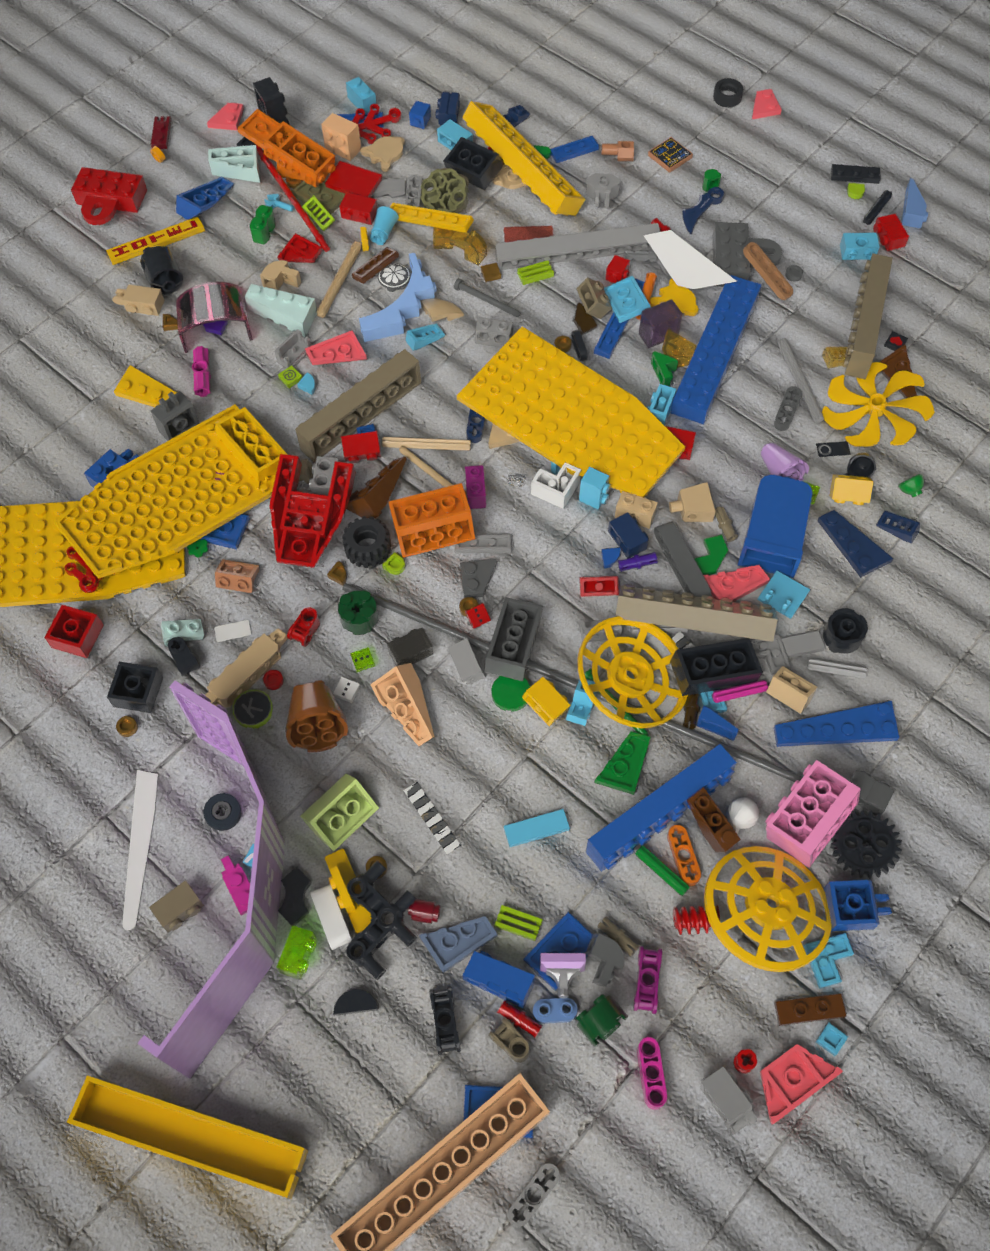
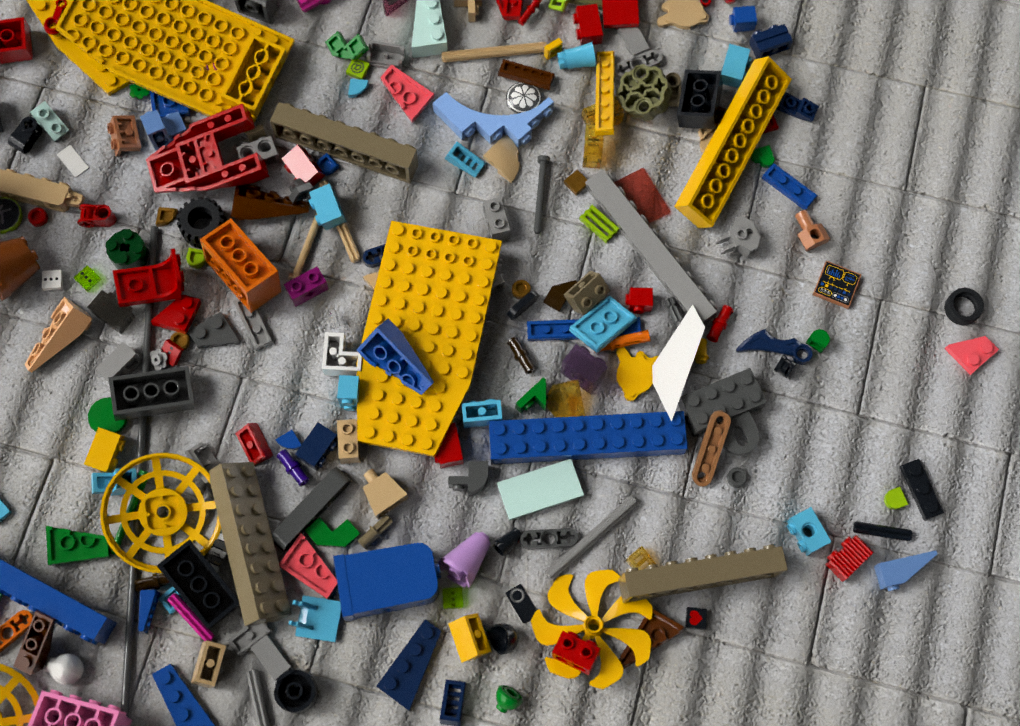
camera: 60 degrees right, 10 degrees up
(254, 538) = (162, 130): none -> medium blue brick
(273, 370) = (341, 49): none -> green tile
(384, 452) = (299, 190): none -> dark grey tile
(405, 595) = (150, 282): none -> red bracket
(412, 440) = (327, 207): none -> medium azure brick
(444, 596) = (178, 315): none -> red wing
(478, 623) = (158, 359): none -> light grey plant
(581, 435) = (393, 353): none -> blue wedge
(622, 364) = (521, 355): none -> dark brown pin
(713, 434) = (475, 481): none -> dark grey brick
(720, 207) = (783, 364): none -> black wheel
(744, 396) = (540, 489): none -> light aqua tile
(779, 435) = (507, 542): none -> black cone
(898, 416) = (576, 652): none -> red brick

